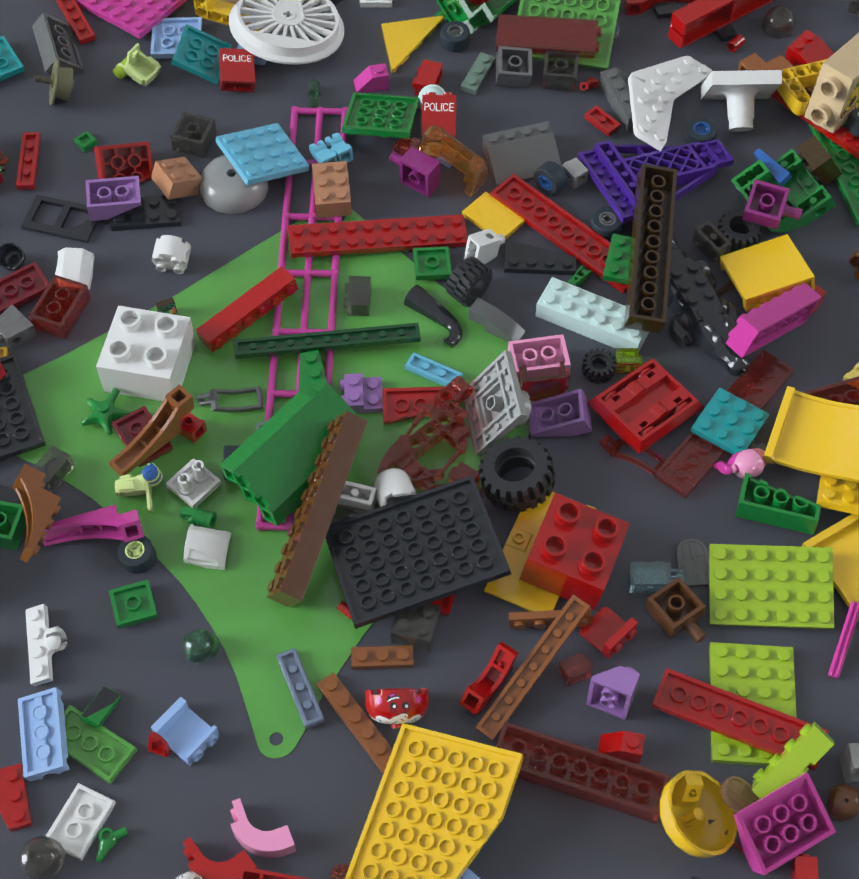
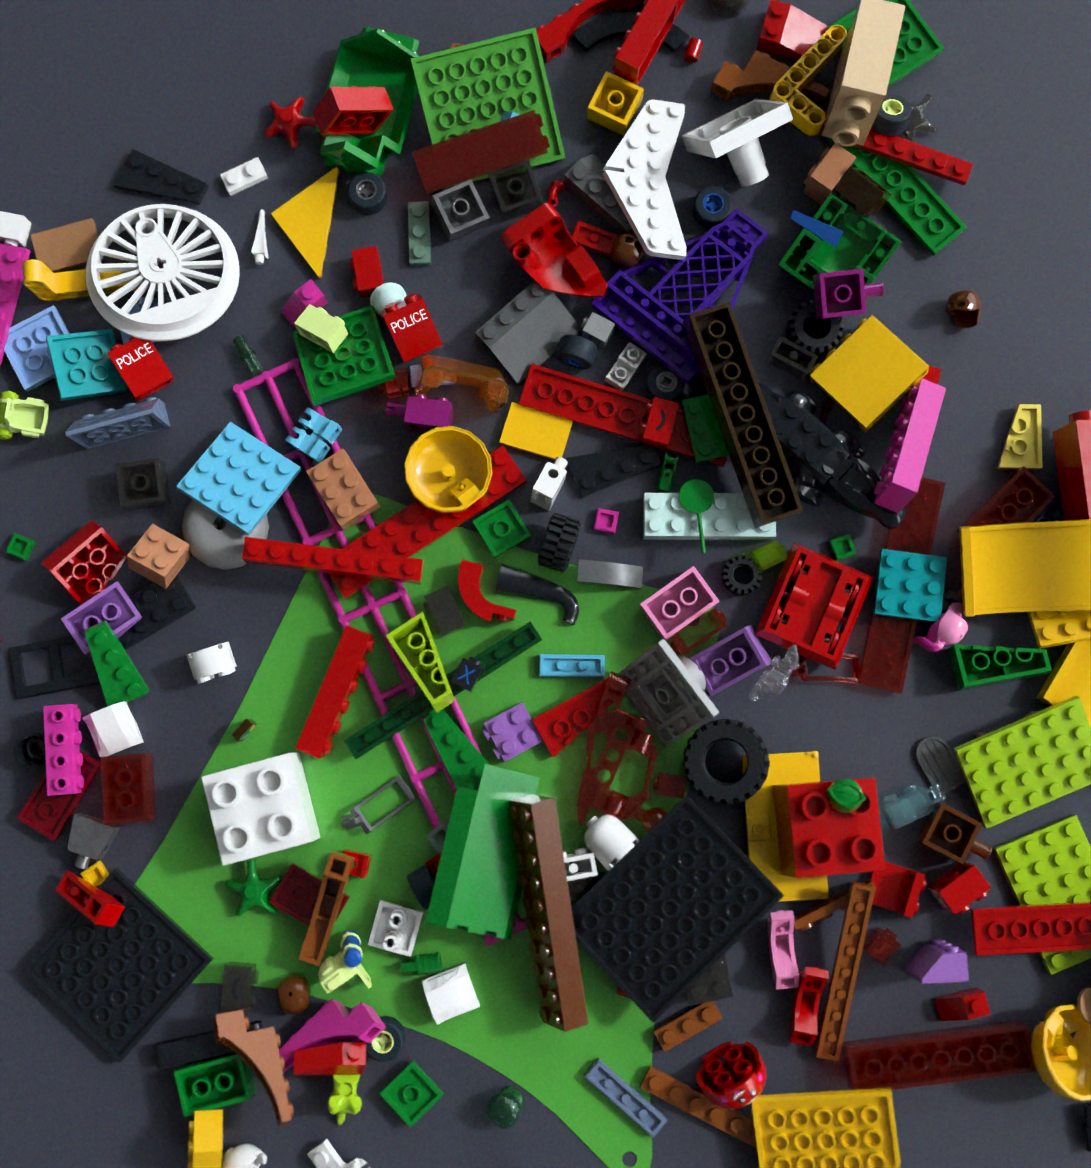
camera: 25 degrees left, 25 degrees up
(31, 261) = (62, 749): none -> dark pink brick
(81, 576) = (344, 1097): none -> lime animal
(88, 492) = (301, 993): none -> reddish brown helmet
(92, 540) = (331, 1059): none -> red slope
(101, 226) = (114, 667): none -> green wing
(200, 92) = (119, 424): none -> sand blue slope
(298, 221) = (332, 560): none -> red brick
(323, 306) = (421, 658): none -> lime wedge
(351, 331) = (468, 673): none -> black brick
(362, 38) = (259, 247): none -> white piece
(375, 92) = (321, 328): none -> yellowish green brick
(388, 284) = (469, 586): none -> red arch
(413, 201) = (448, 469): none -> yellow piece
(492, 627) = (781, 949): none -> bright pink arch
(513, 292) = (606, 521): none -> dark pink tile
(562, 114) = (553, 254): none -> red panel
(585, 203) = (625, 367): none -> white slope
(587, 439) = (776, 679): none -> clear animal
(588, 240) = (659, 423): none -> red brick
(588, 292) = (697, 497): none -> green piece
(597, 514) = (845, 795): none -> green hat
(620, 133) = (625, 252): none -> reddish brown helmet
(660, 46) = (615, 103): none -> yellow brick
(662, 649) = (959, 888): none -> red brick
(690, 381) = (842, 547): none -> green tile
(796, 135) = (827, 173): none -> nougat brick

